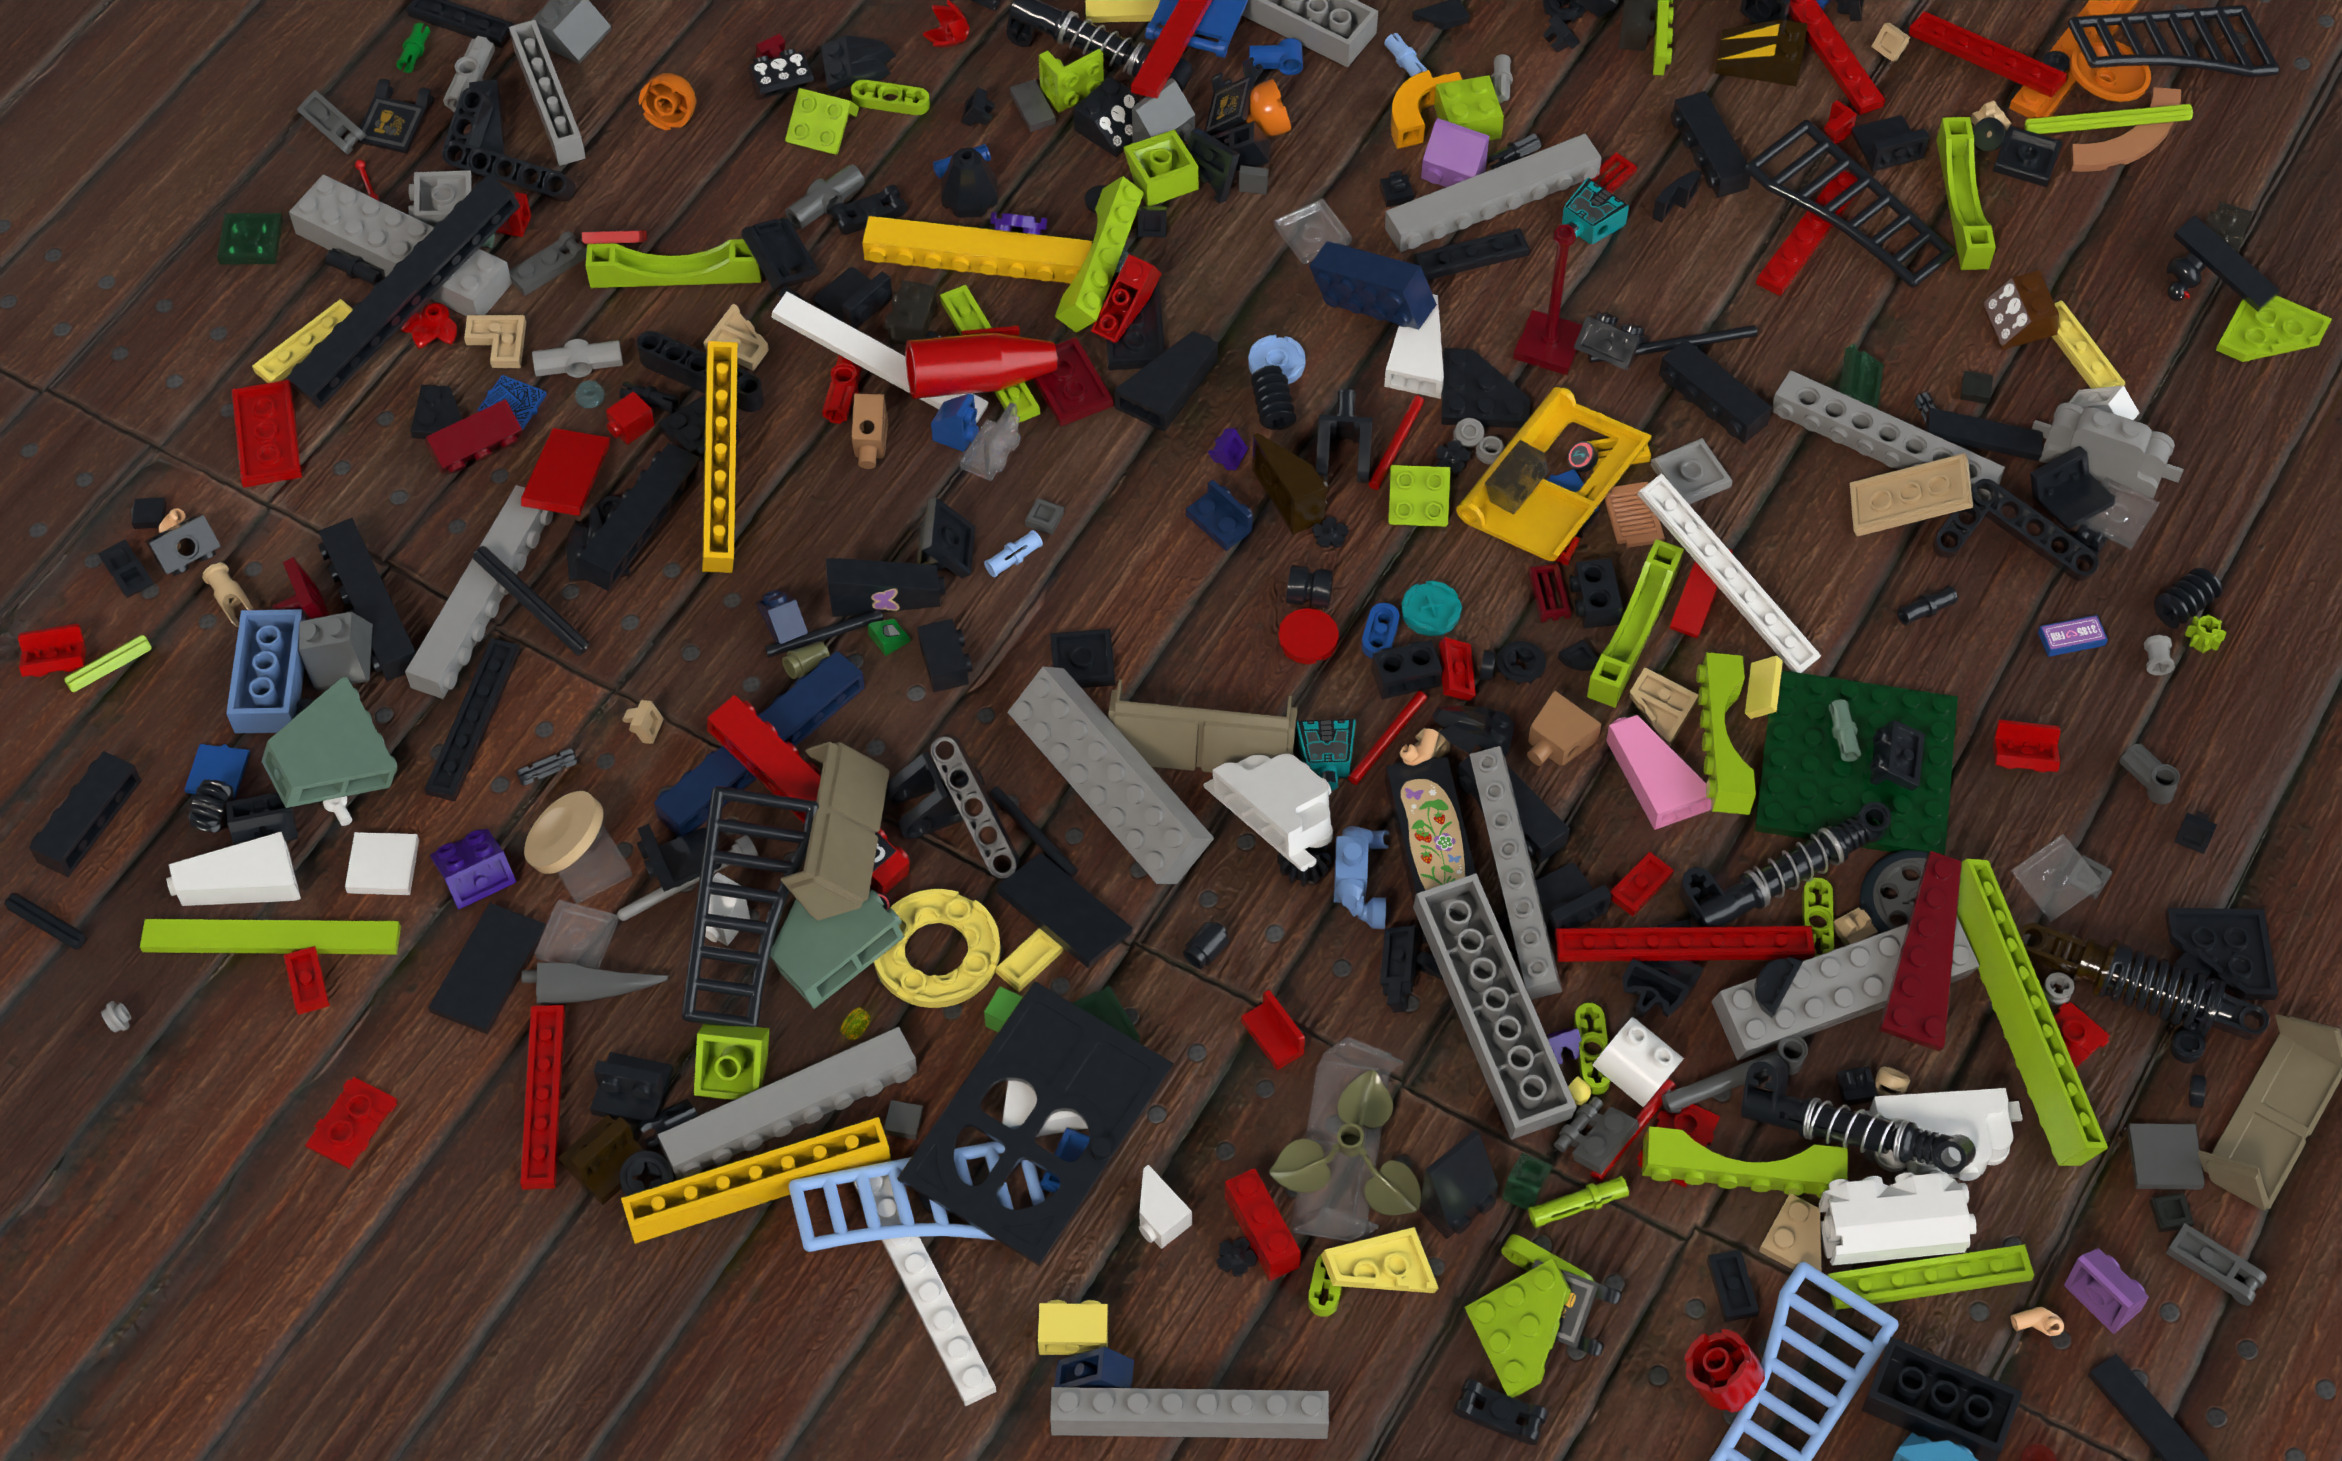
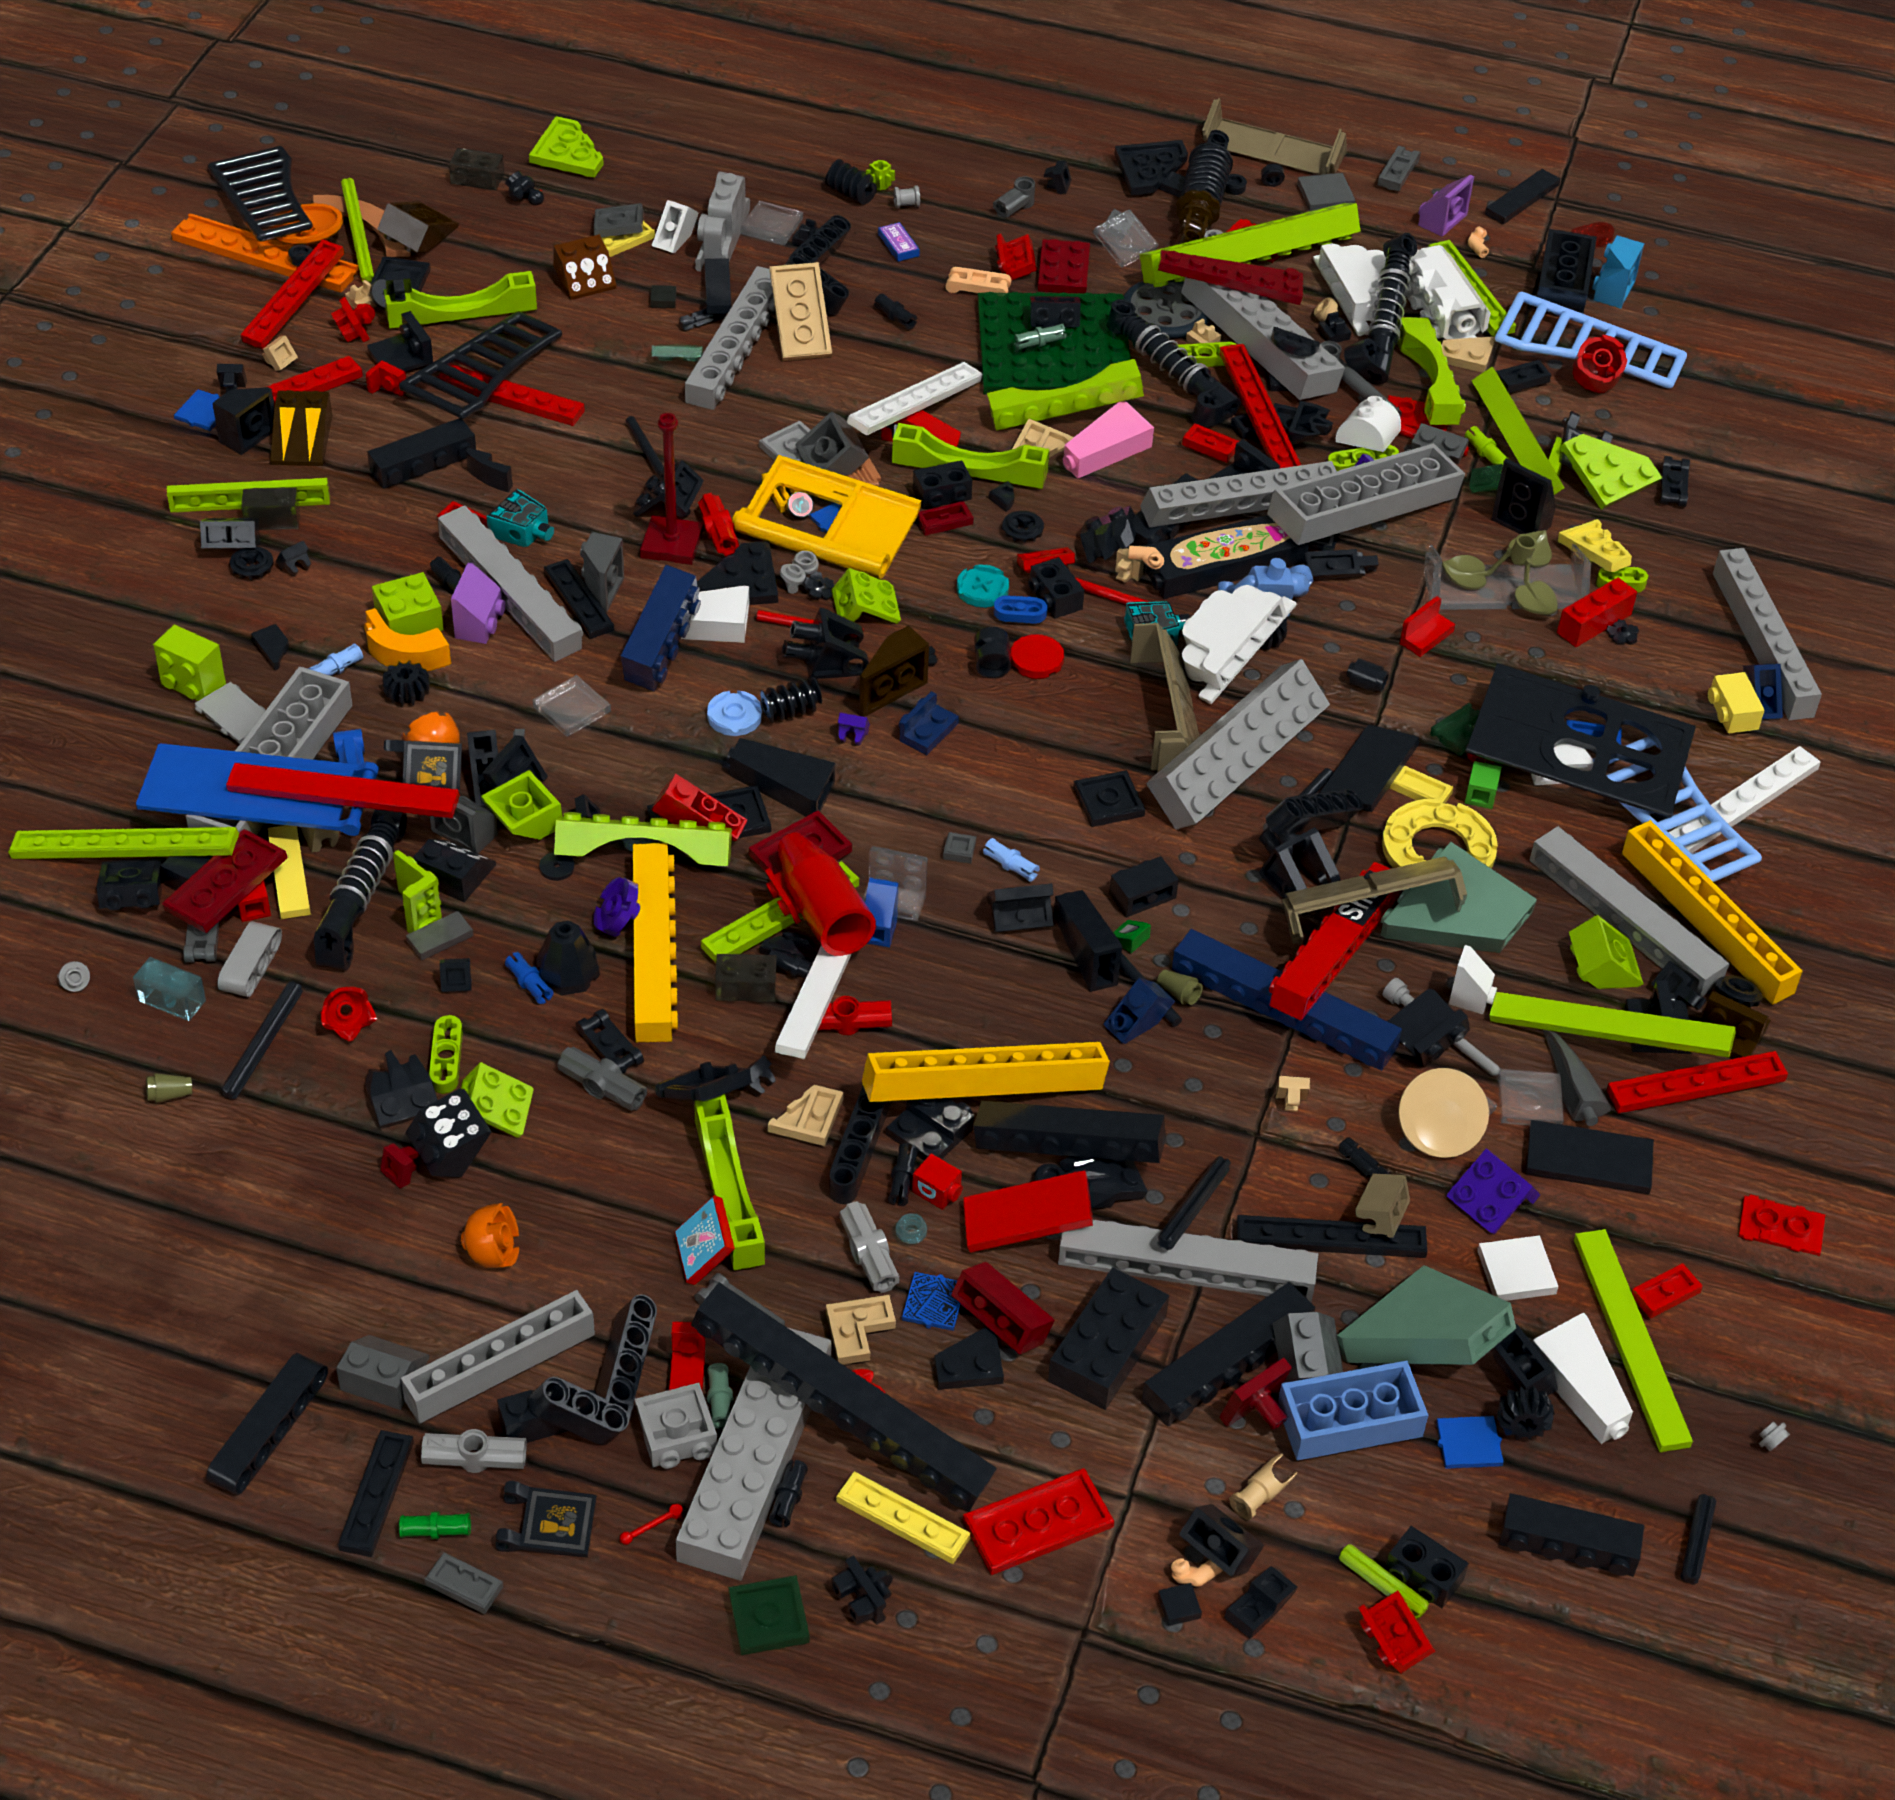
camera: 105 degrees left, 10 degrees down
(102, 695) = (1431, 1562): none -> black brick
(243, 300) = (869, 1587): none -> black hips
(330, 121) = (571, 1579): dark grey plate -> none
(355, 60) = (464, 1583): none -> dark grey plate
(416, 510) = (1108, 1338): none -> black brick
(480, 758) = (1384, 1202): none -> dark tan hinge
(612, 1023) = (1613, 1024): none -> lime tile
(708, 888) = (1480, 955): black bar -> none
(854, 296) = (735, 1026): black bracket -> none
(855, 1023) = (1535, 881): clear neon green tile -> none
(869, 428) = (906, 977): medium nougat torso -> none
(903, 1120) = (1603, 841): dark grey tile -> none
(1161, 1210) = (1613, 670): white slope -> none
(1363, 103) = (406, 683): none -> black gear
(1396, 189) = (509, 654): black tile -> none
(1486, 261) = (603, 566): none -> dark grey slope
(1487, 665) = (1035, 540): black tile -> none
(1502, 77) = (352, 594): light grey axle -> none
(1516, 477) = (846, 526): clear smoke brick -> none
(1556, 373) = (718, 524): none -> red piece
(1561, 732) = (1086, 494): medium nougat torso -> none
(1604, 1230) = (1514, 426): none -> lime tile
(1680, 479) = (832, 446): none -> dark grey slope
(1714, 391) = (712, 430): black brick -> none
(1763, 687) = (994, 383): light yellow tile -> none
(1945, 104) = (351, 320): none -> red hips
(1959, 120) = (398, 283): none -> black tile
(1980, 702) = (977, 281): none -> light nougat plate
(2012, 805) = (1063, 266): none -> dark red plate
(2069, 489) = (768, 237): black bracket -> none
(2108, 167) = (415, 225): none -> dark brown slope
(2117, 356) = (619, 220): none -> dark grey tile
(2171, 1212) = (1367, 189): pearl dark grey tile -> none
(2226, 263) = (518, 158): black tile -> none

